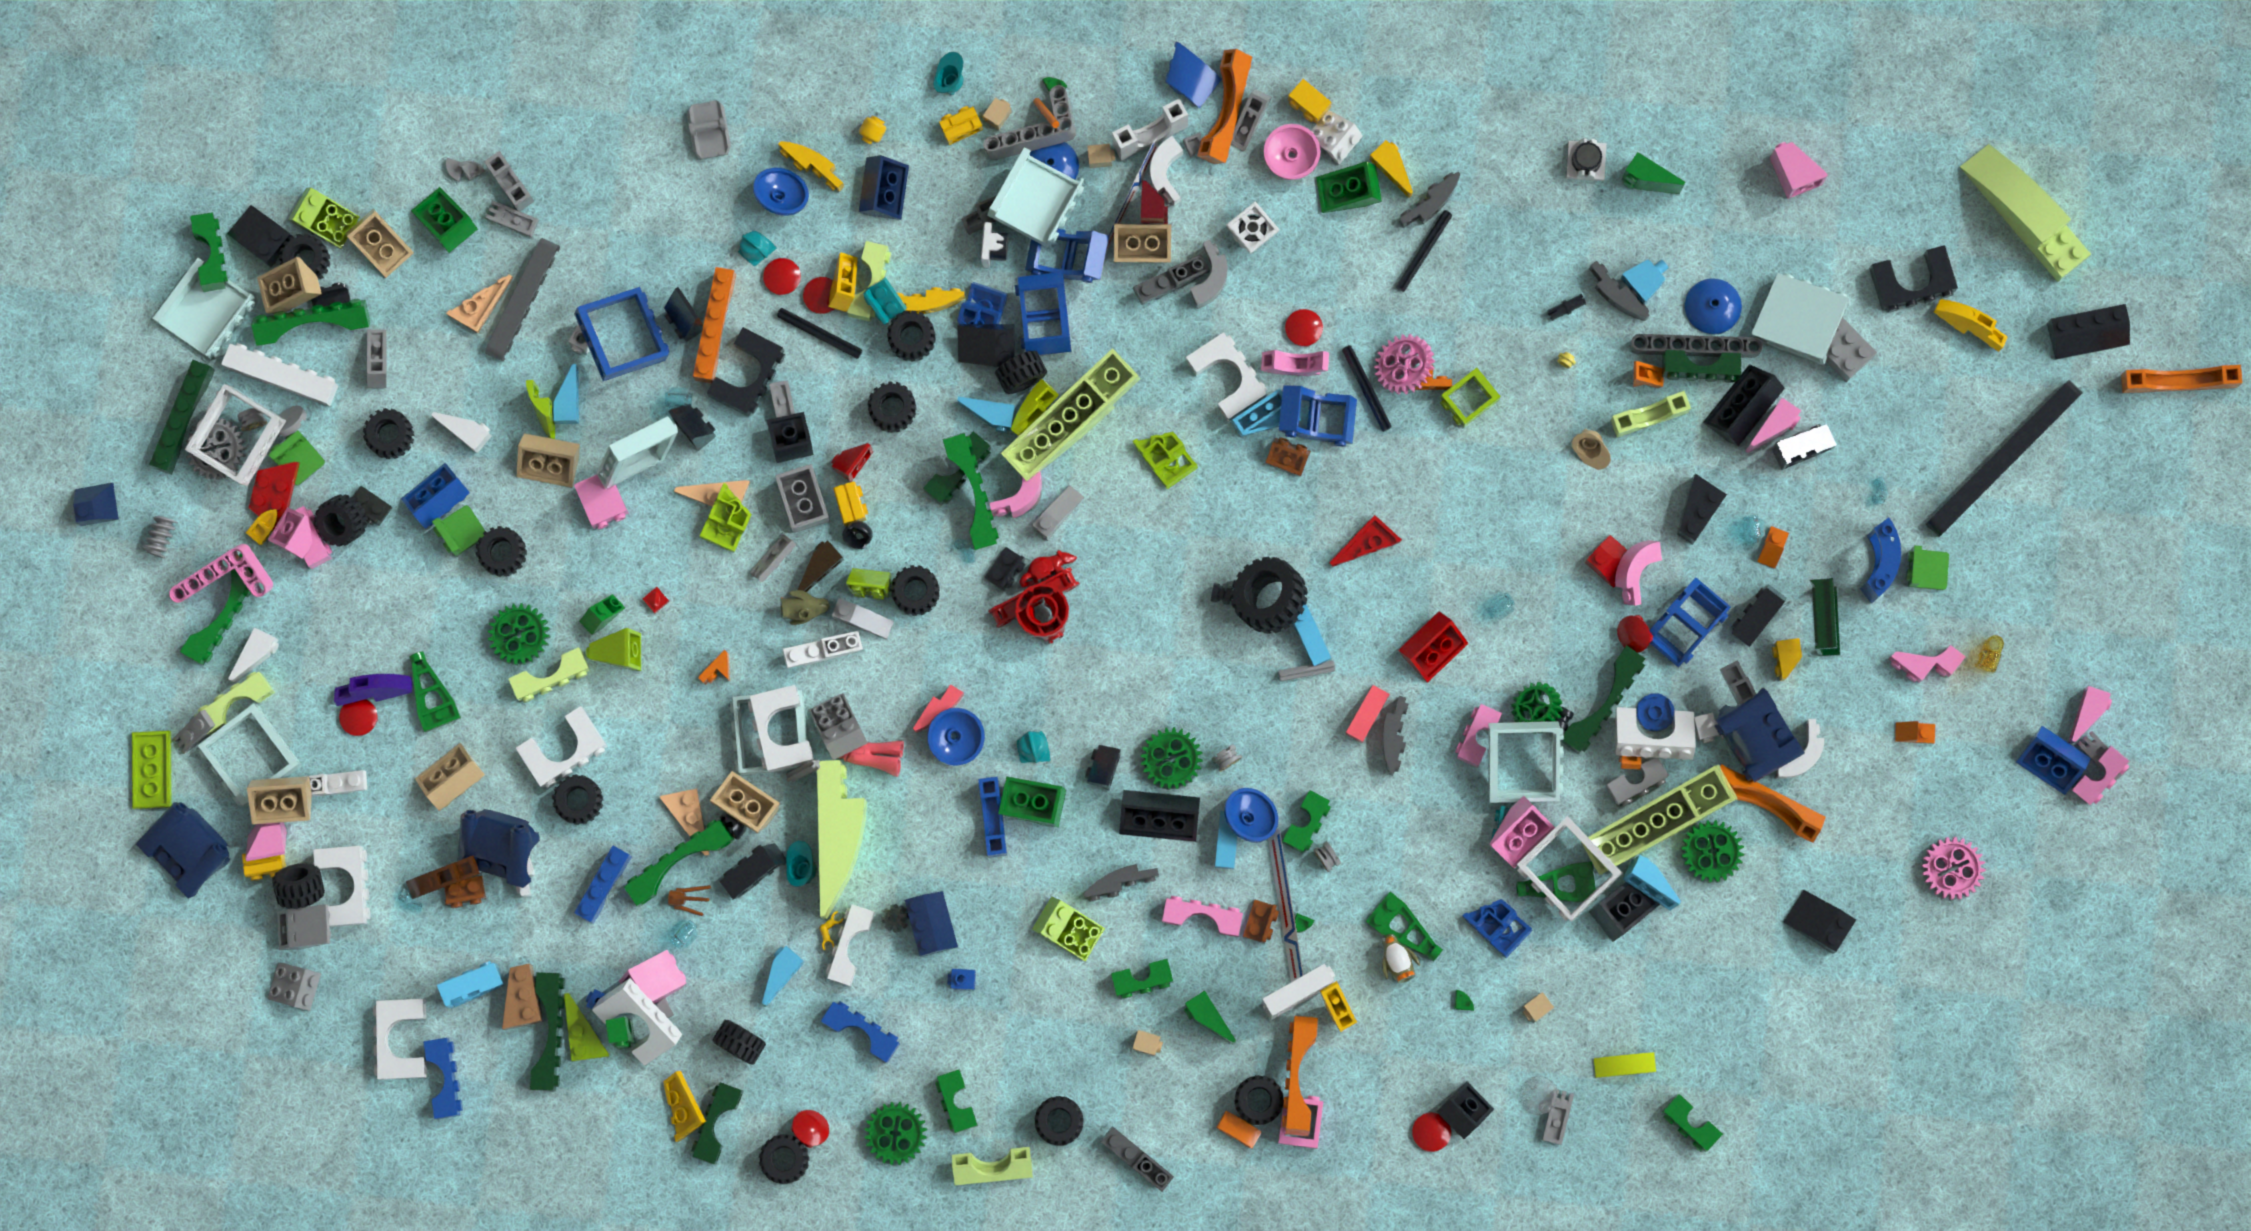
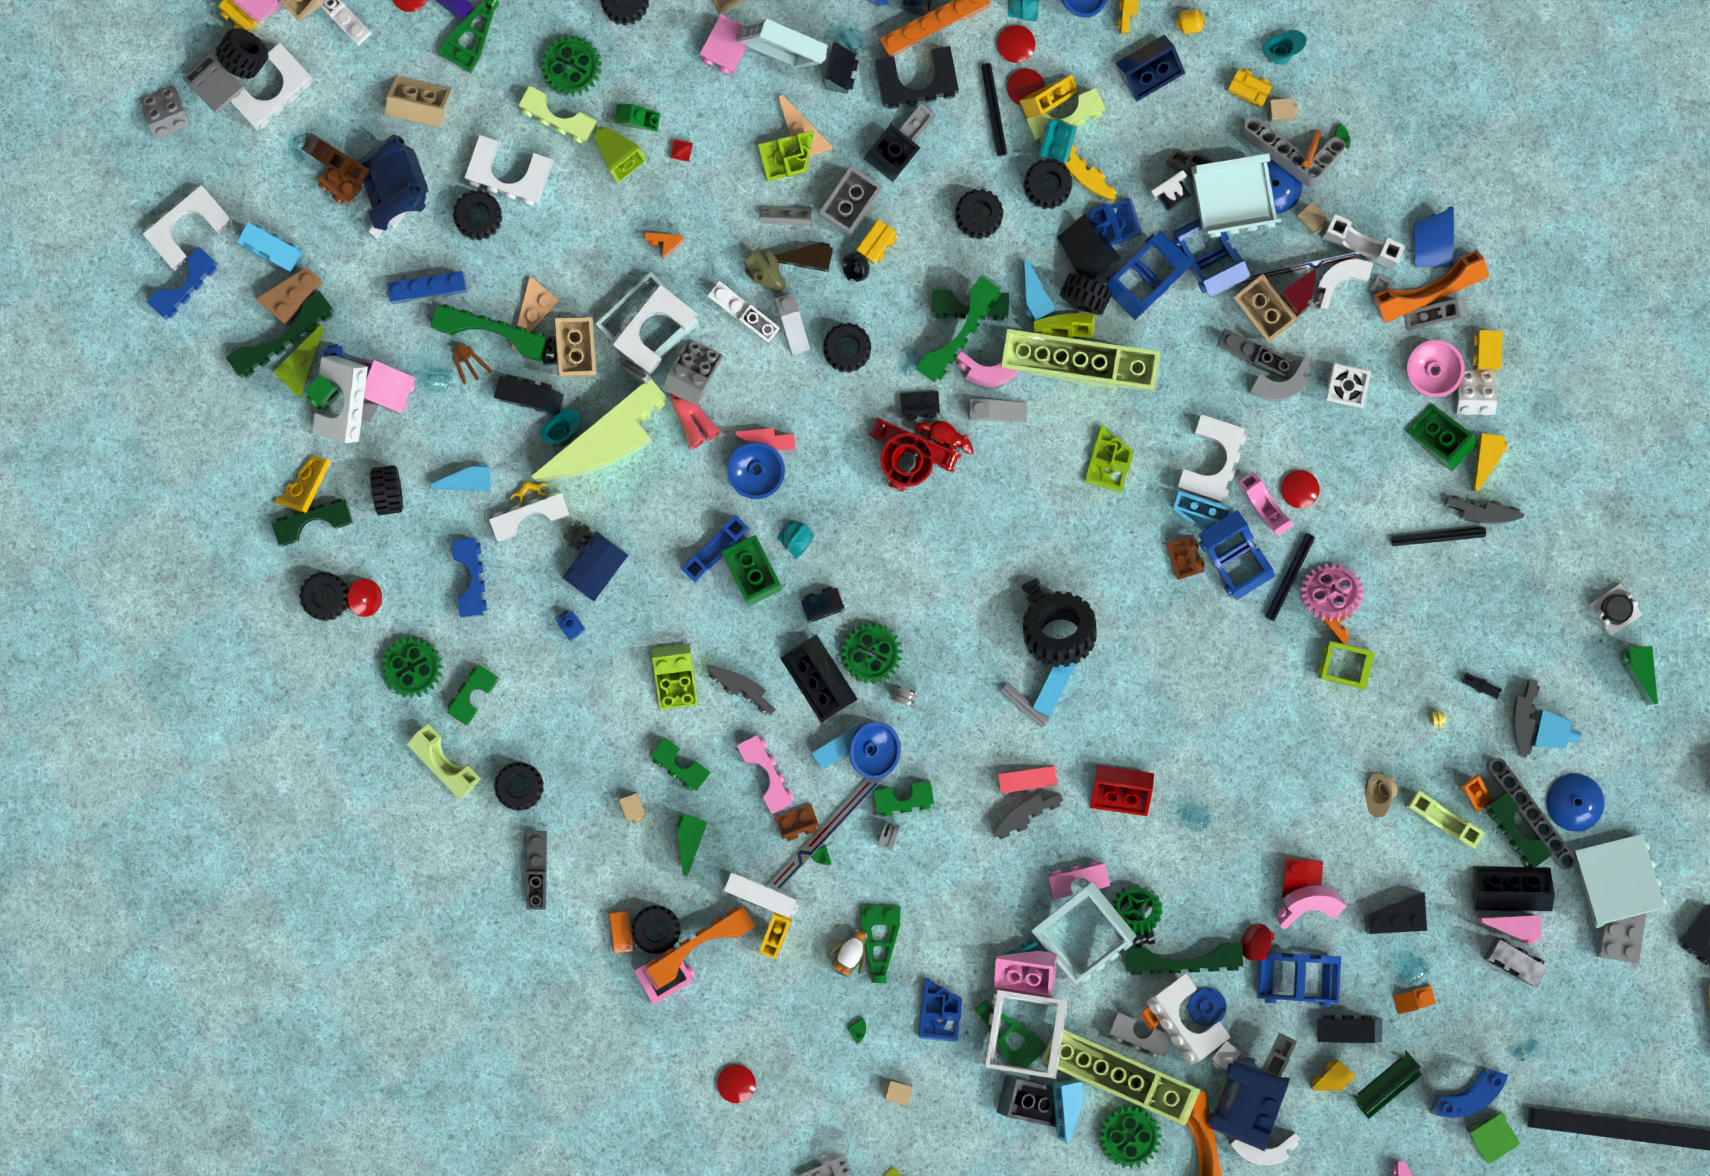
camera: 50 degrees right, 5 degrees up
(851, 461) = (910, 216): red slope -> none
(869, 582) = (825, 307): lime slope -> none
(1369, 539) = (1170, 674): red wing -> none
(1465, 1110) = (773, 1097): black slope -> none

